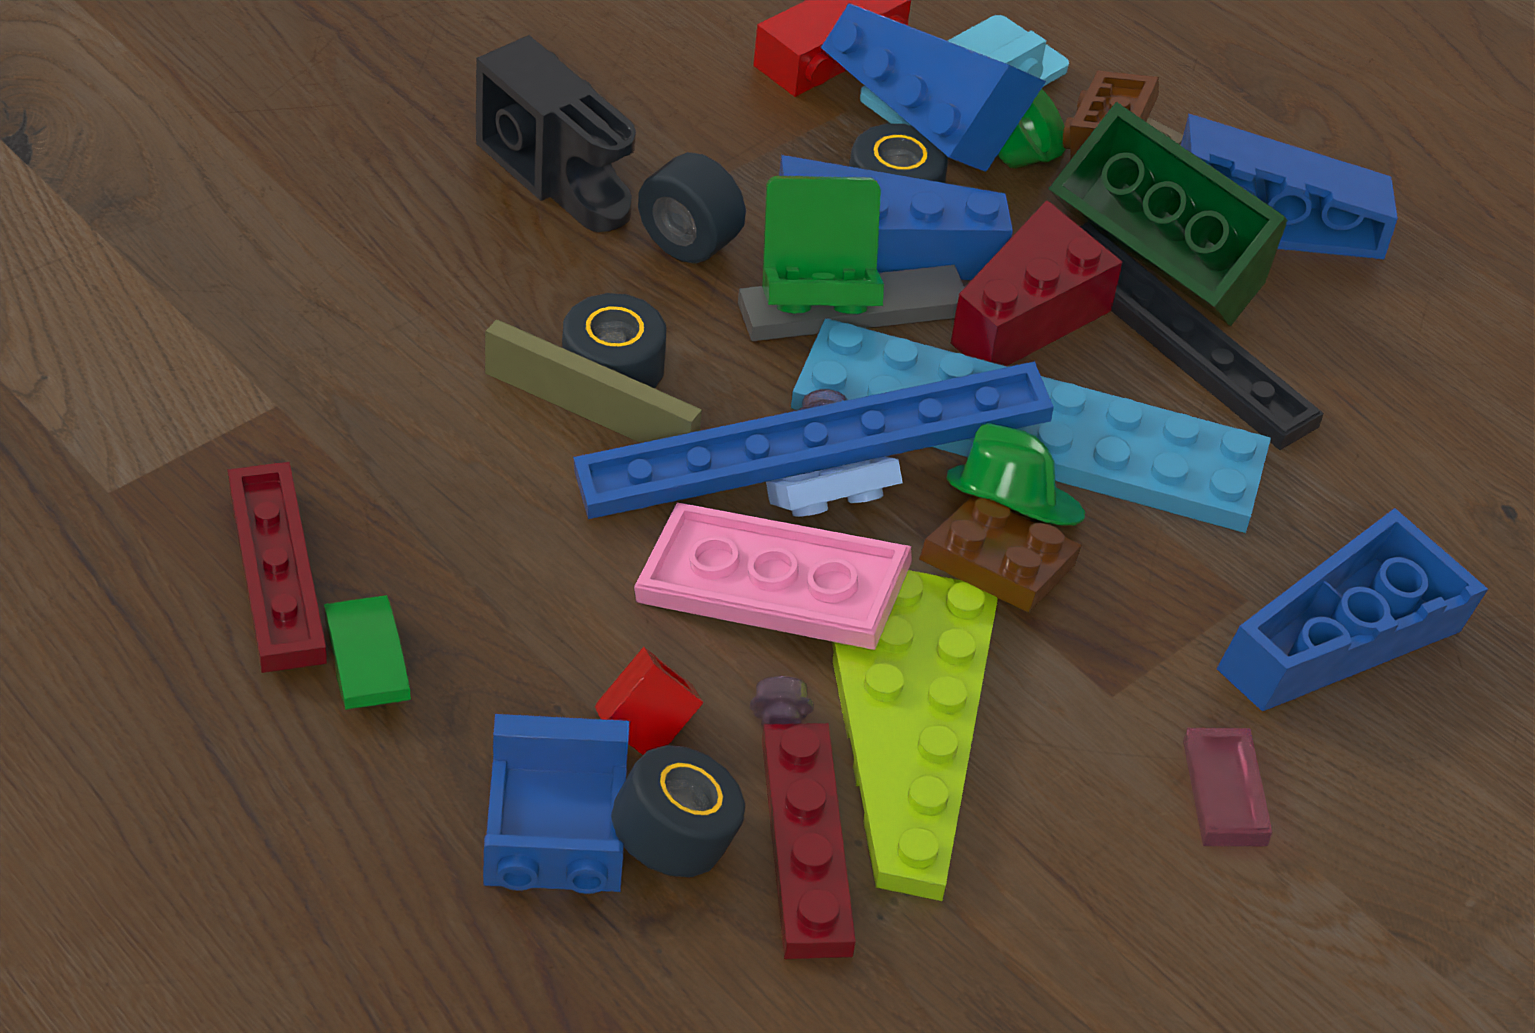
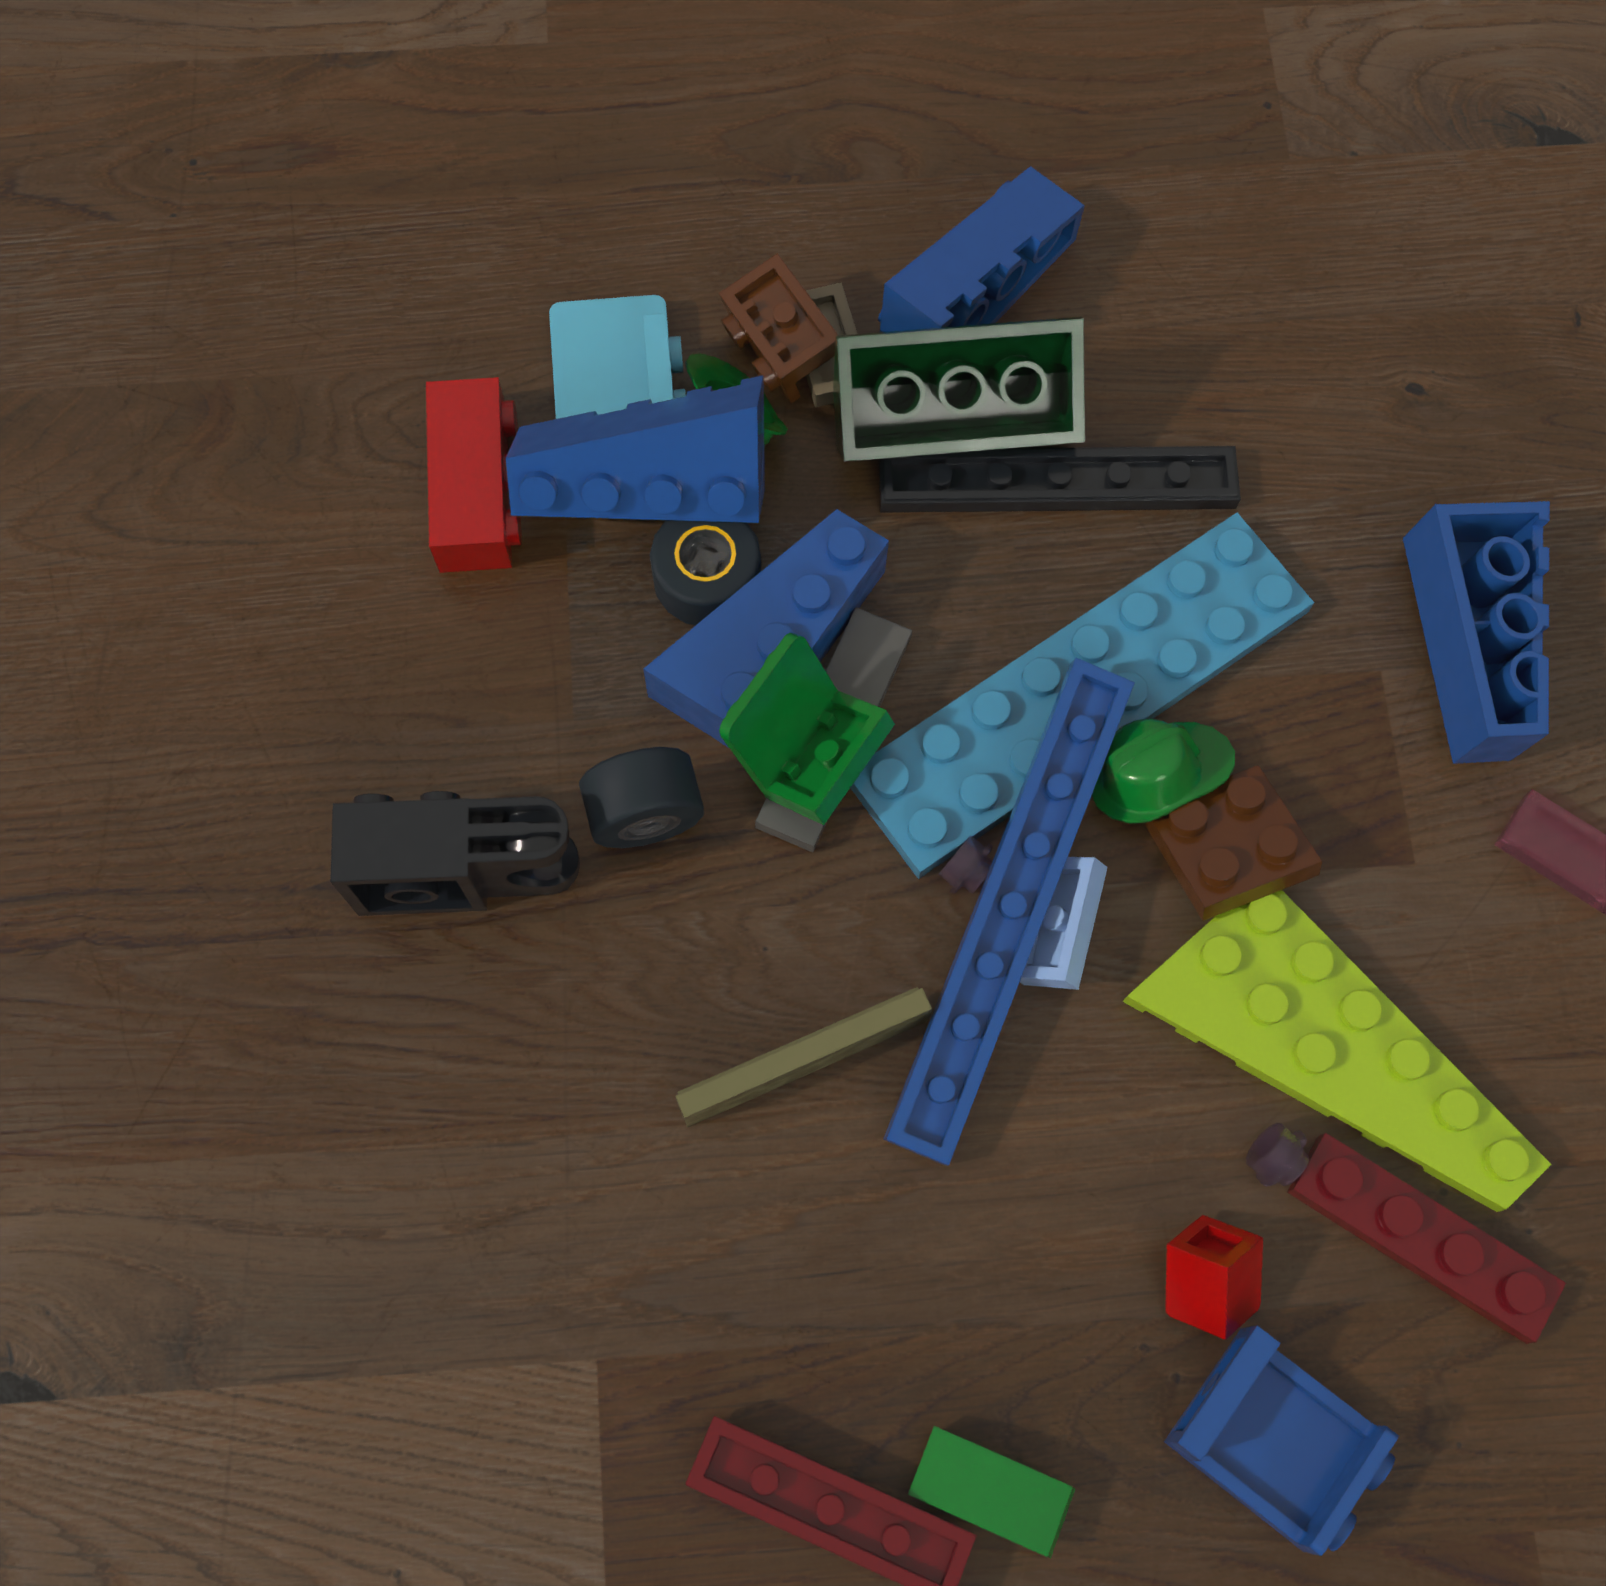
camera: 50 degrees left, 25 degrees up
(618, 334) = (755, 972): black wheel -> none
(678, 811) = (1359, 1317): black wheel -> none
(774, 575) = (1135, 1057): bright pink tile -> none
(1035, 290) = (944, 568): dark red wedge -> none

